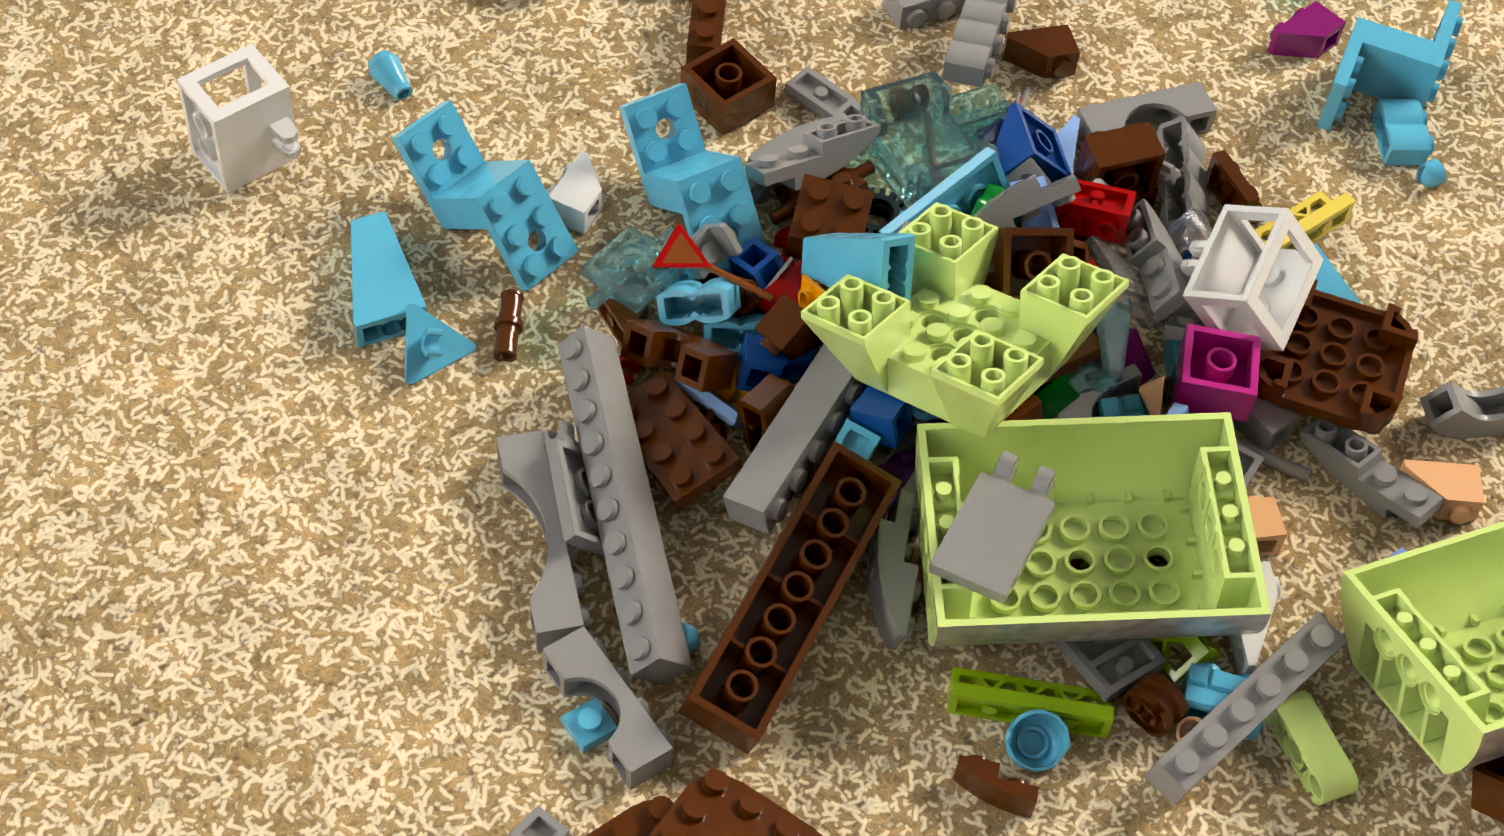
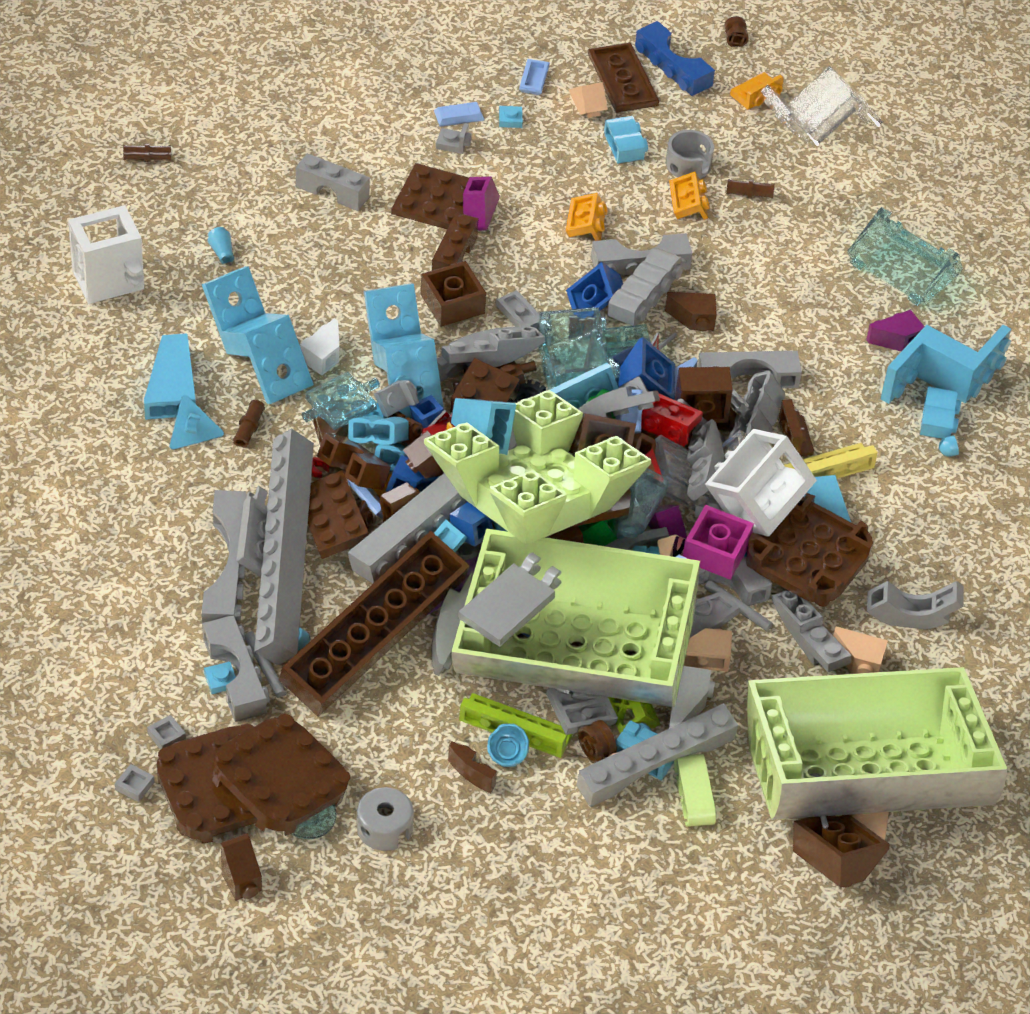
camera: 15 degrees right, 5 degrees down
(649, 692) = (266, 667): none -> light grey bar
(682, 253) = (376, 396): dark orange piece -> none
(910, 48) = (595, 288): none -> blue slope

